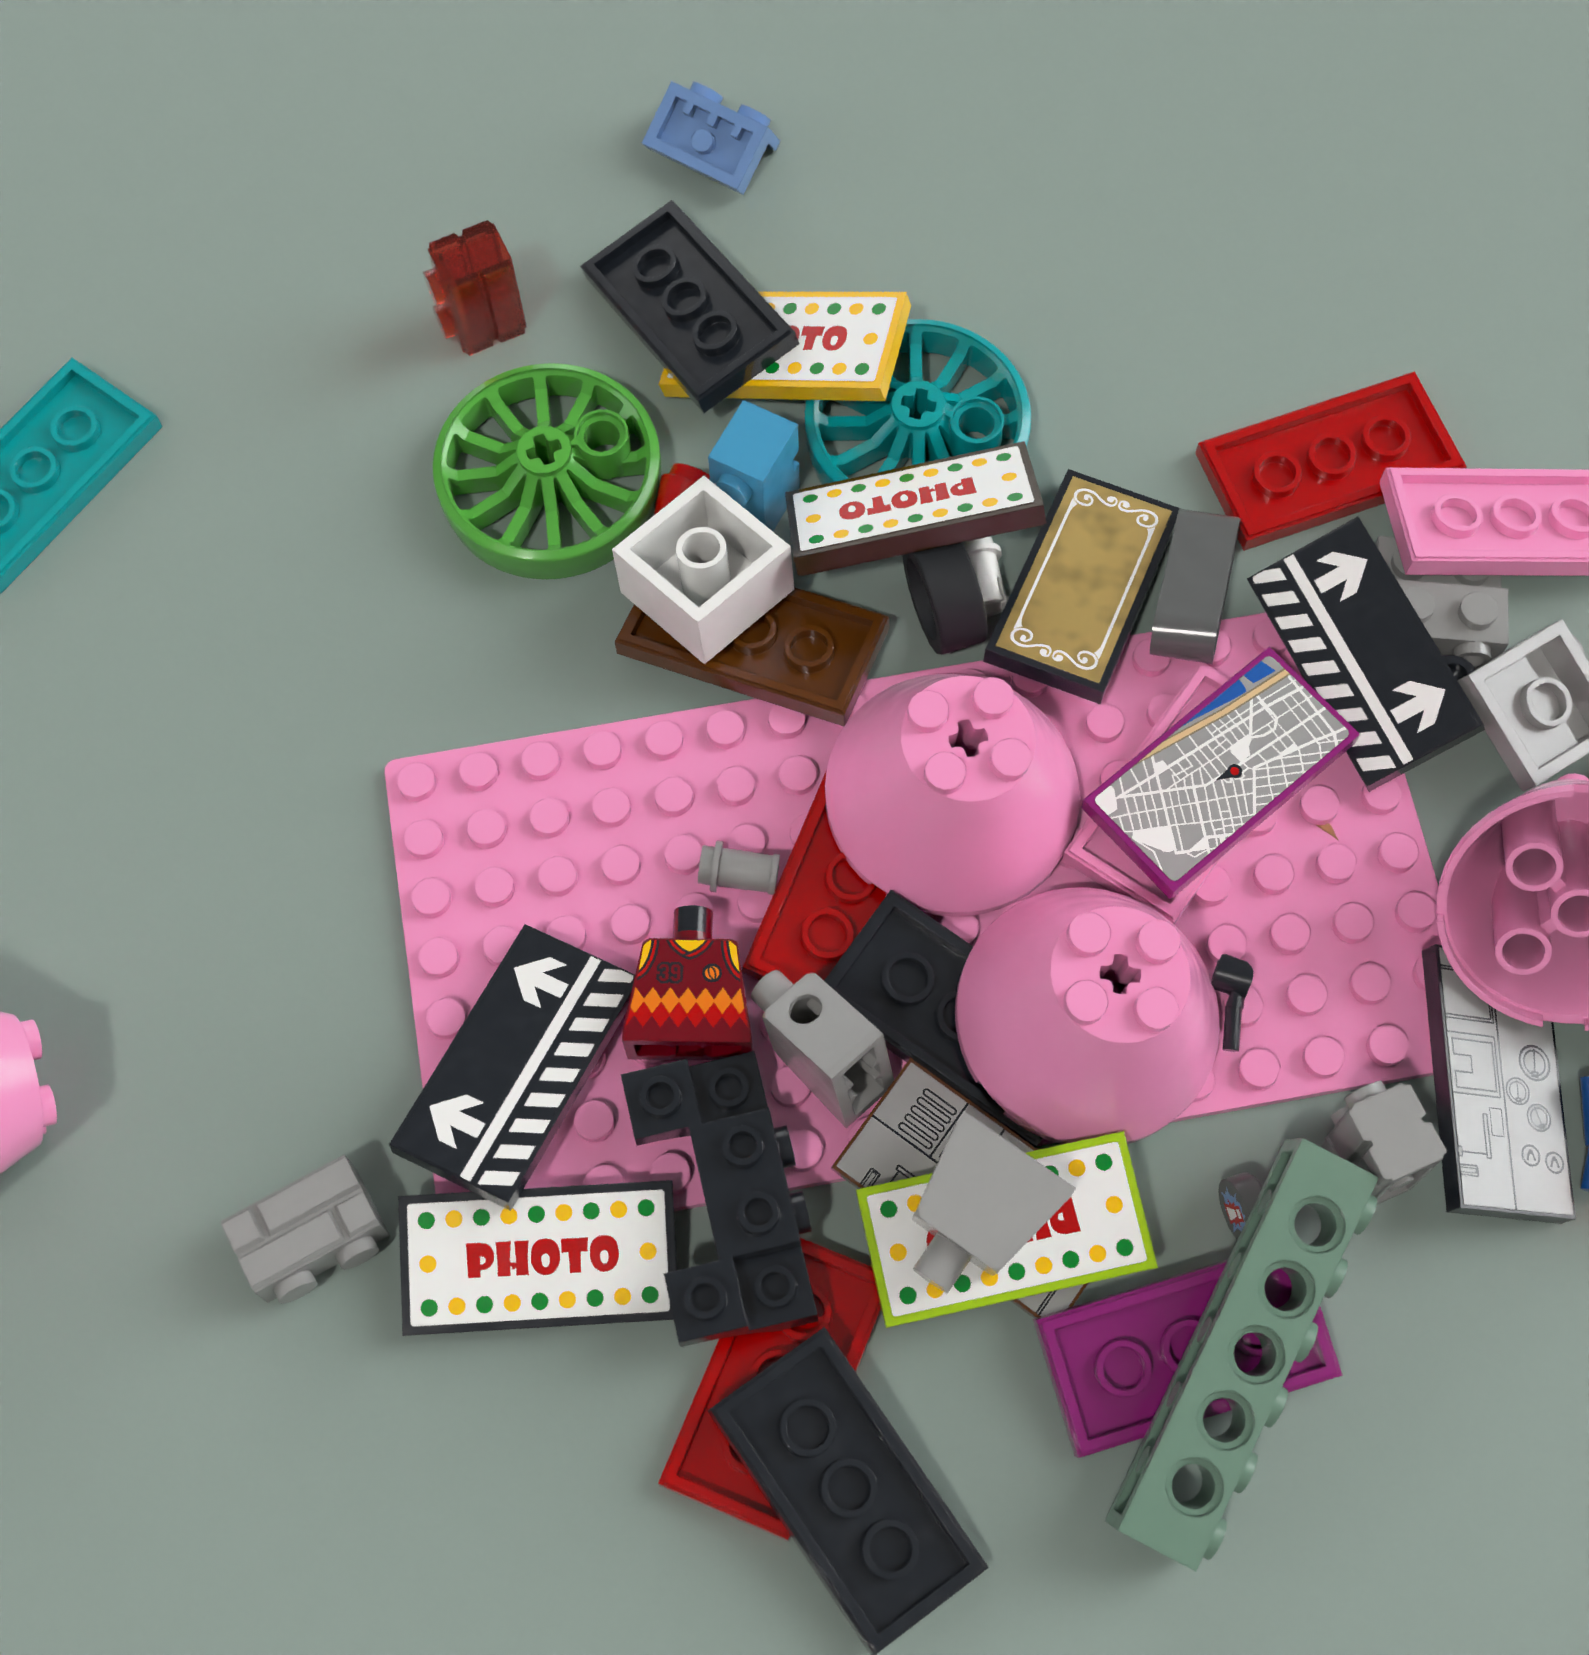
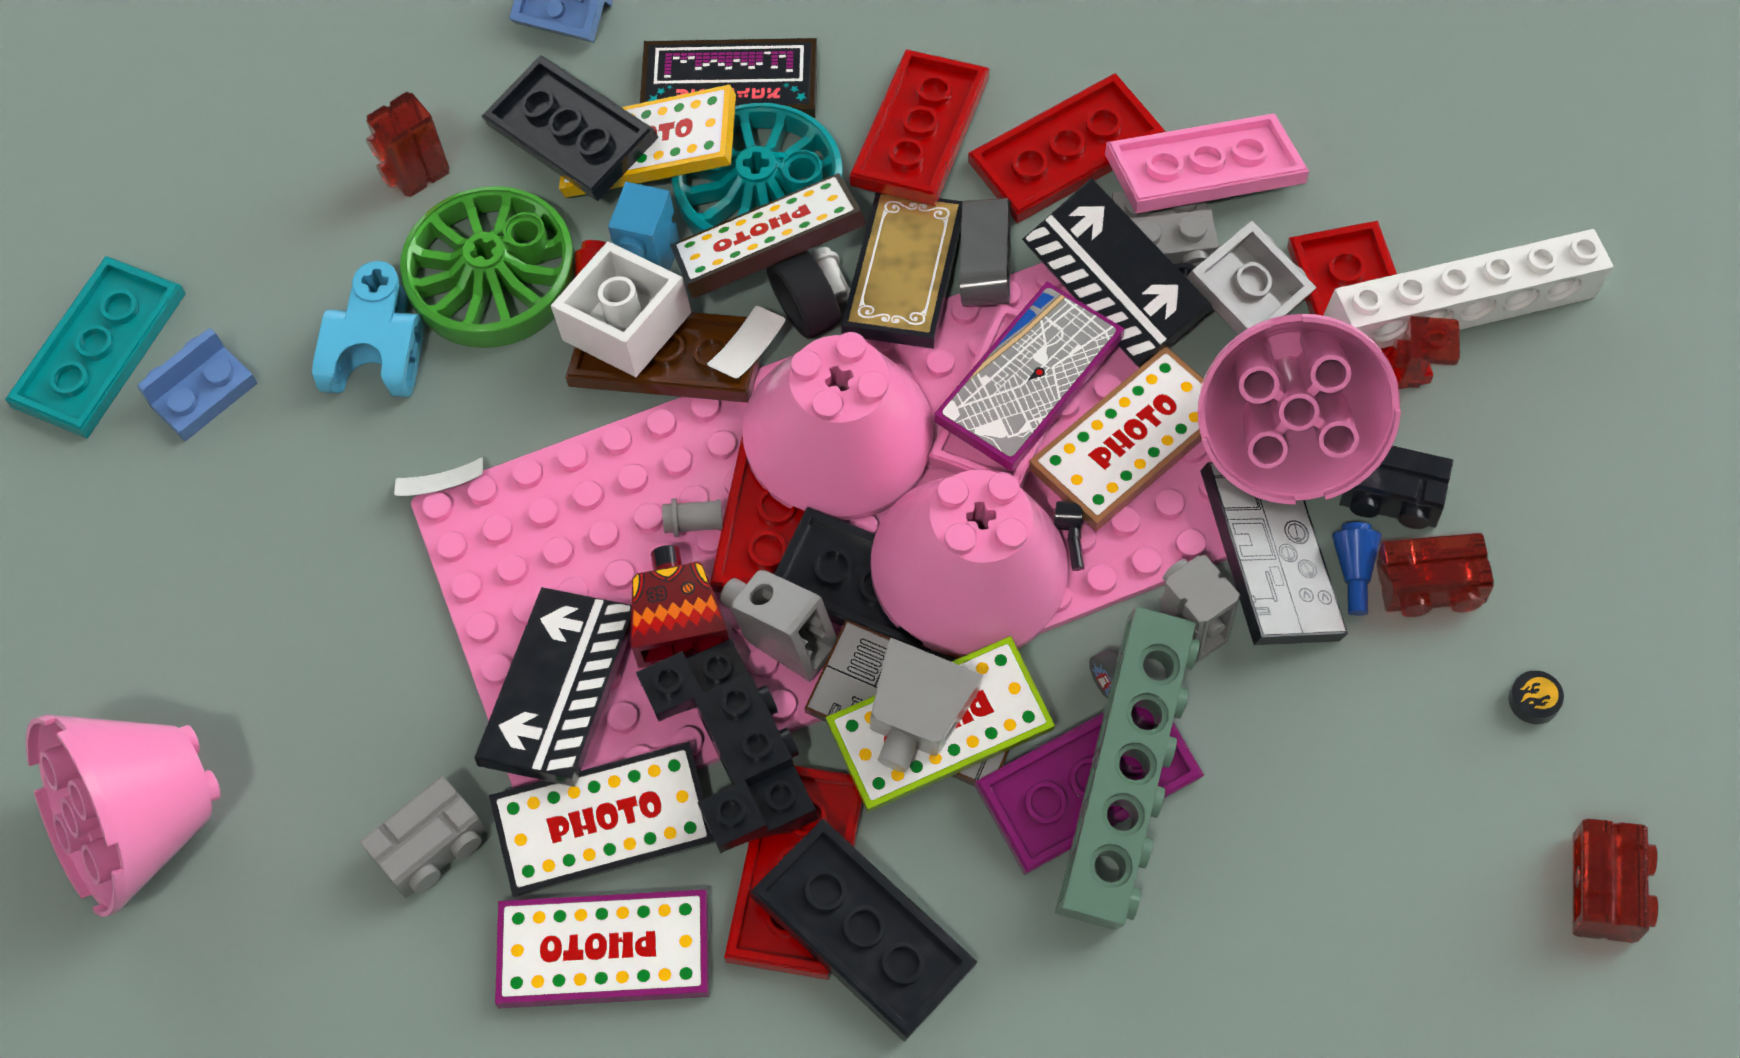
camera: 10 degrees left, 5 degrees down
(148, 552) = (196, 384): none -> medium blue bracket
(379, 527) = (370, 332): none -> medium azure piece
(425, 747) = (438, 481): none -> white sticker
(504, 1433) = (602, 949): none -> tile
(858, 647) = (748, 342): none -> white sticker
(944, 272) = (755, 68): none -> tile
(1141, 395) = (919, 127): none -> red tile
(1332, 884) = (1125, 439): none -> tile

